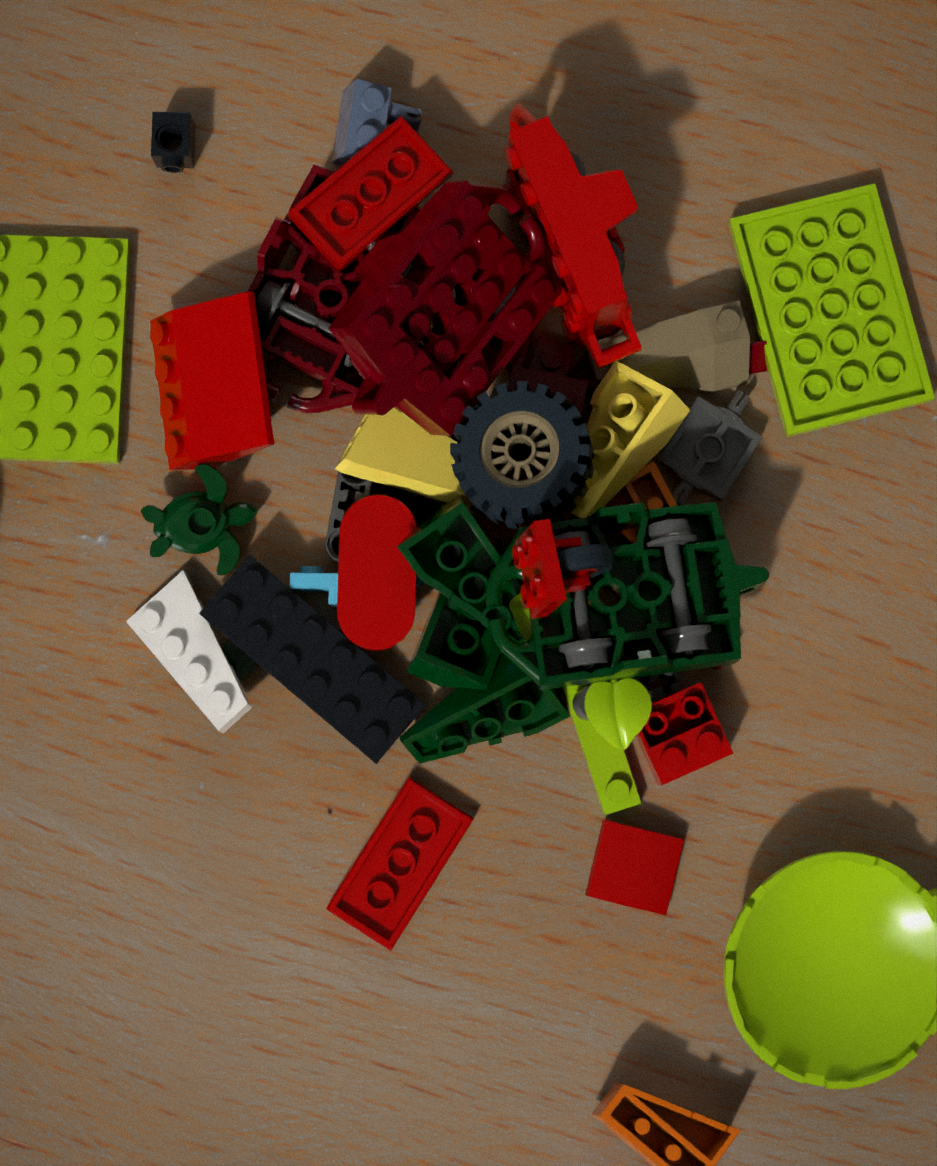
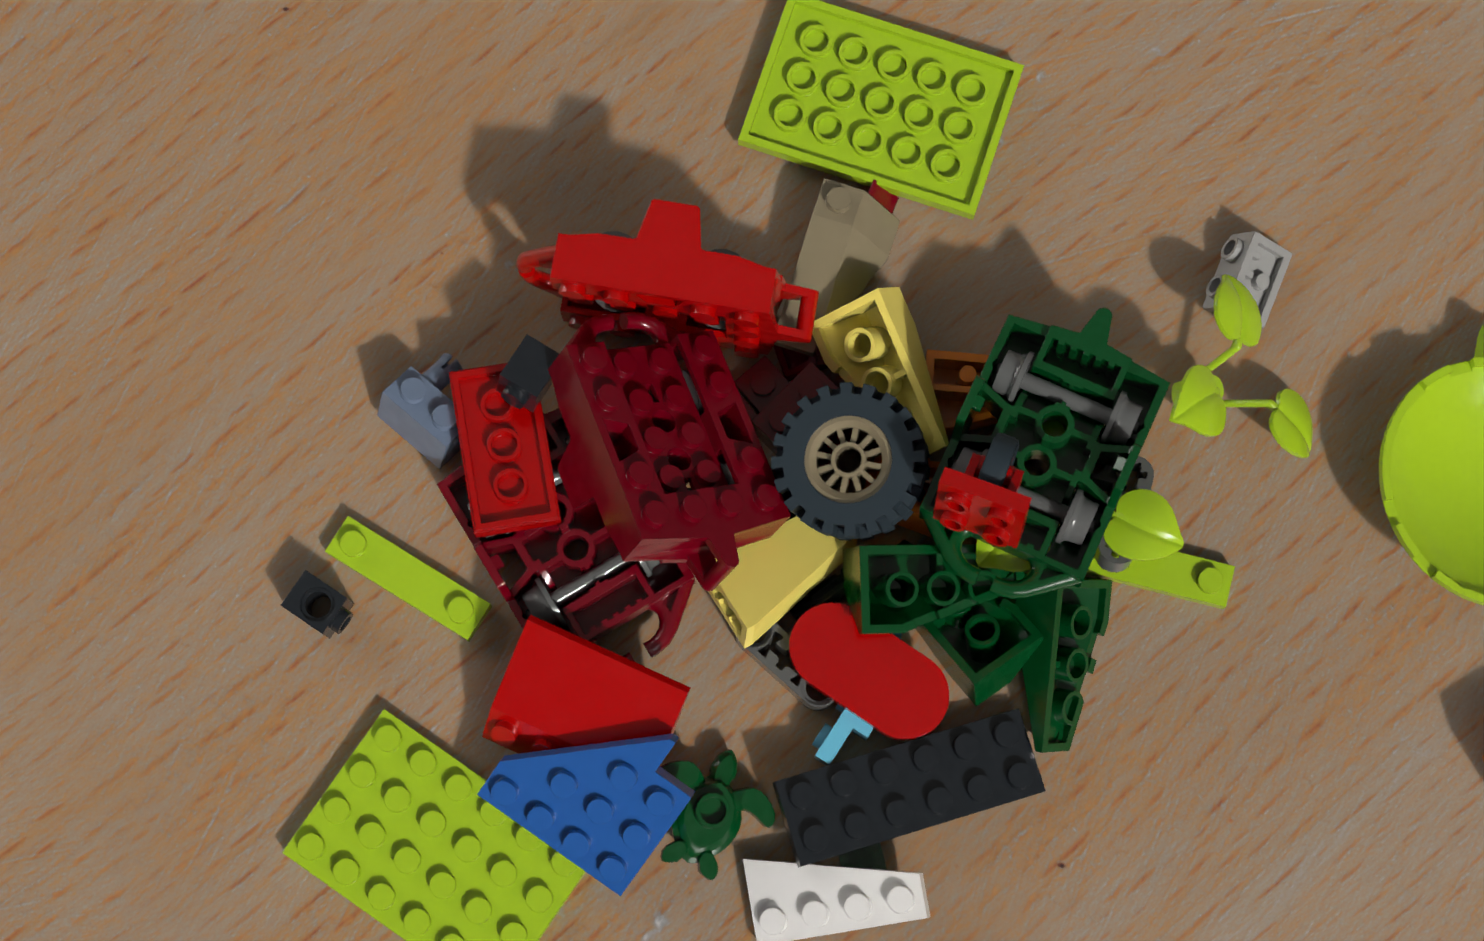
camera: 55 degrees left, 5 degrees down
(149, 430) = (593, 802): none -> blue wing
(236, 194) = (408, 578): none -> lime plate
(399, 863) = (1154, 829): red tile -> none
(430, 169) = (527, 374): none -> black brick
(634, 867) = (1291, 611): red slope -> none
(682, 735) = (1199, 486): red slope -> none
(710, 448) = (942, 292): dark grey plate -> none
(754, 691) = (1200, 393): none -> lime plant
(877, 676) = (1256, 264): none -> light grey bracket

